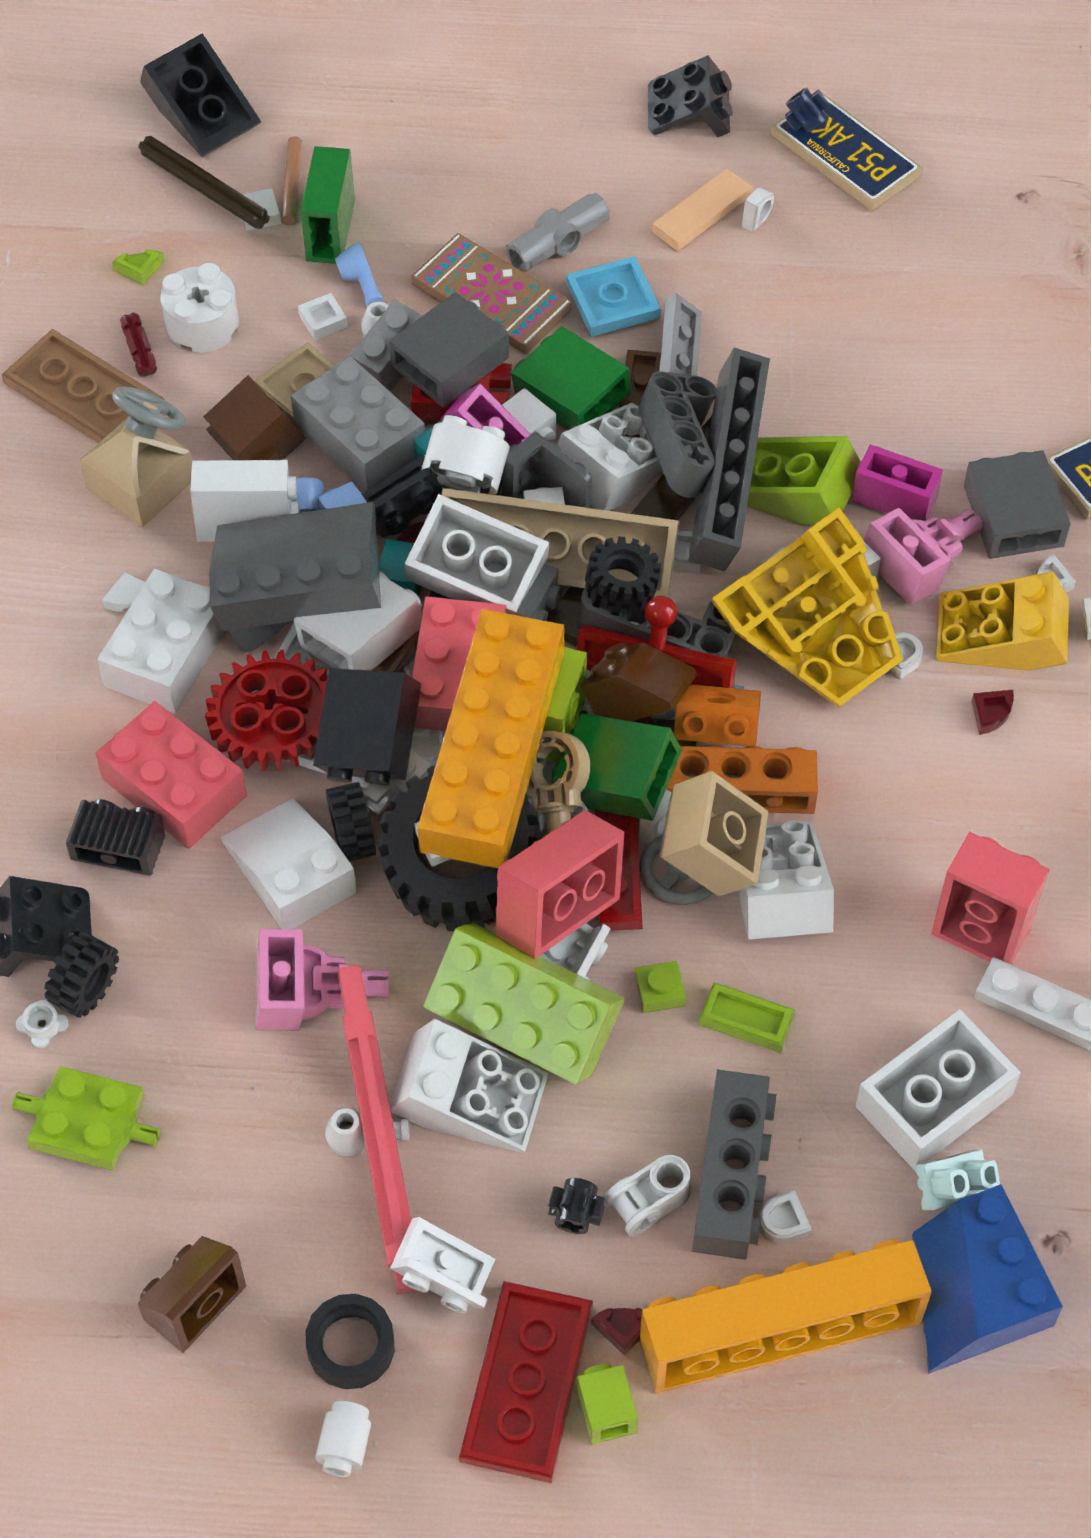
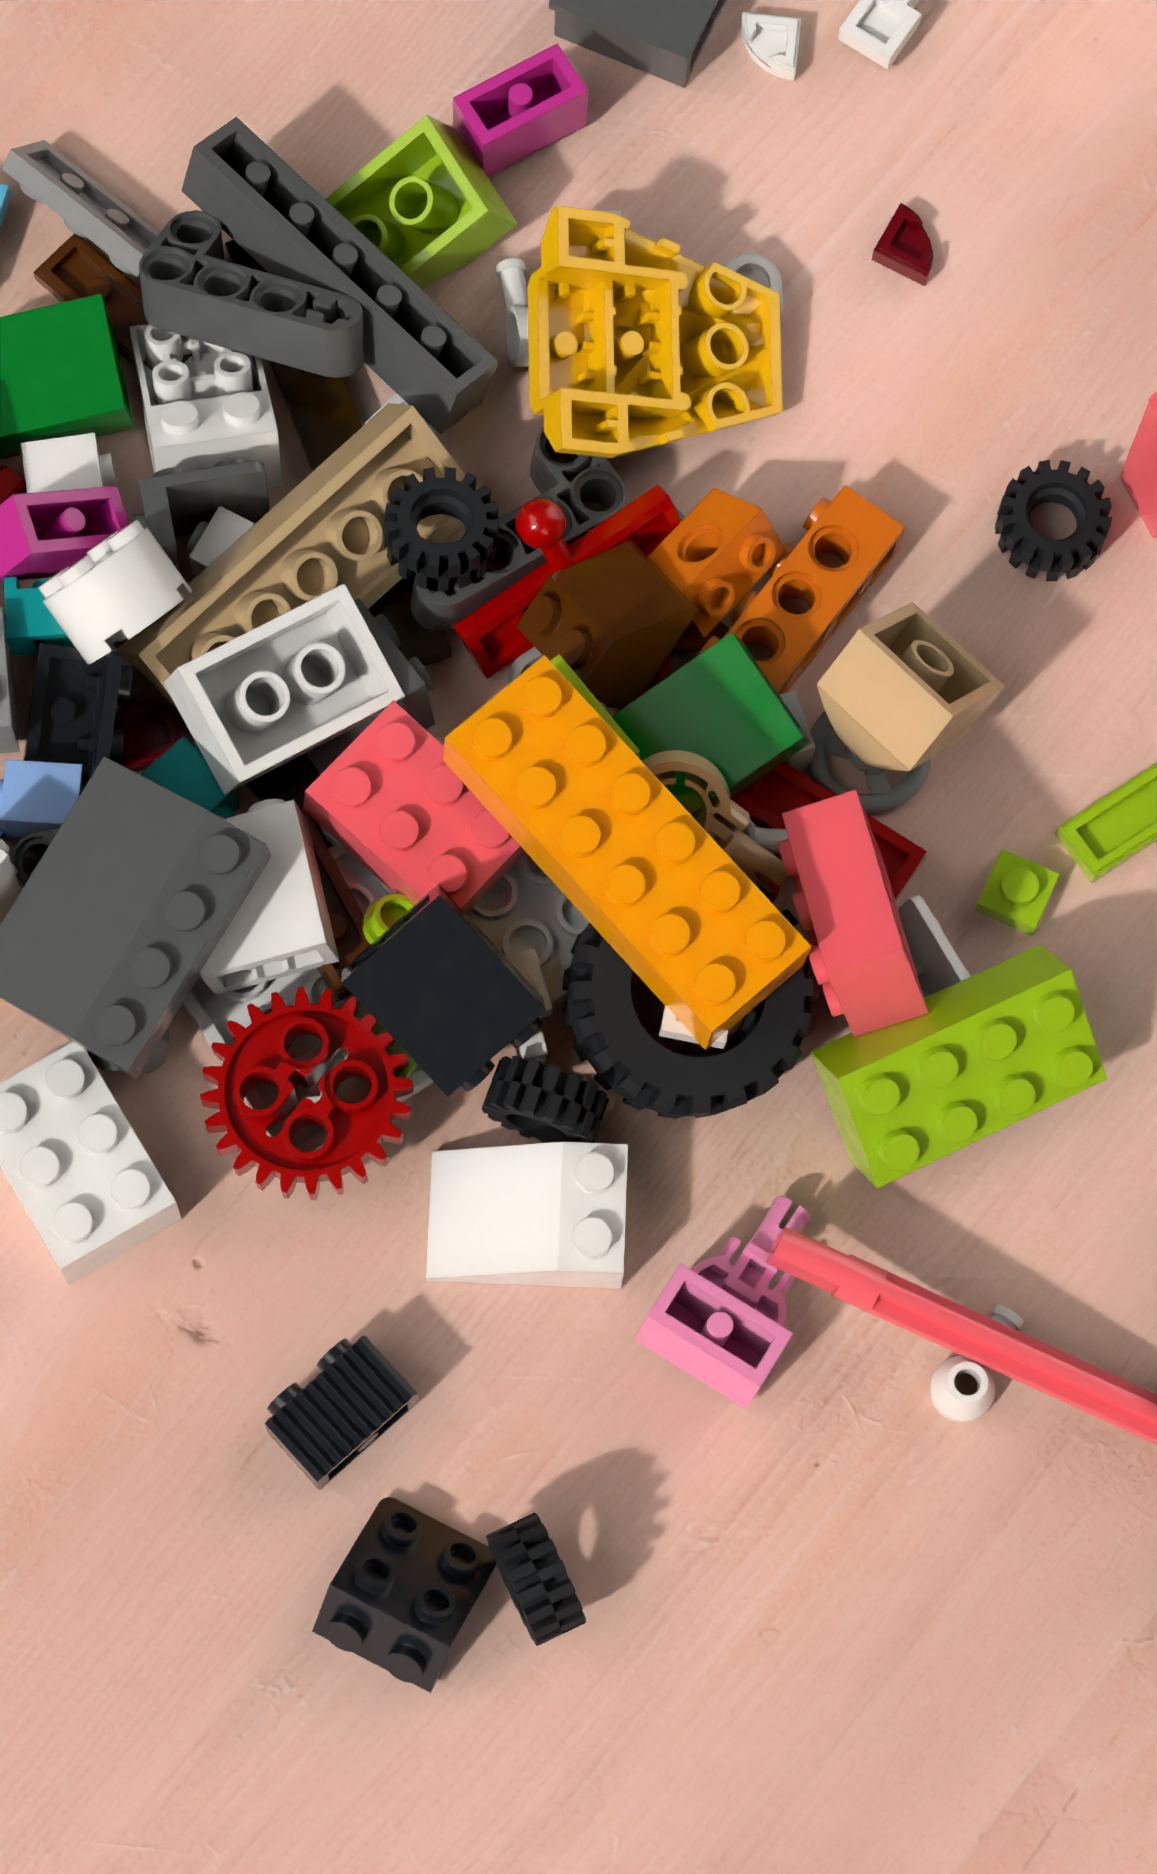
camera: 60 degrees left, 15 degrees up
(35, 1013) = (562, 1656): white plate -> none
(86, 1118) = (728, 1696): lime plate -> none
(172, 772) = (297, 1281): coral brick -> none
(192, 1291) = (1071, 1707): reddish brown slope -> none
(467, 1088) = (1007, 1210): white slope -> none
(792, 886) = (1014, 635): white slope -> none
(898, 851) = (1059, 487): none -> black tyre
(918, 551) = (632, 162): bright pink brick -> none
(1005, 624) = (803, 145): yellow slope -> none

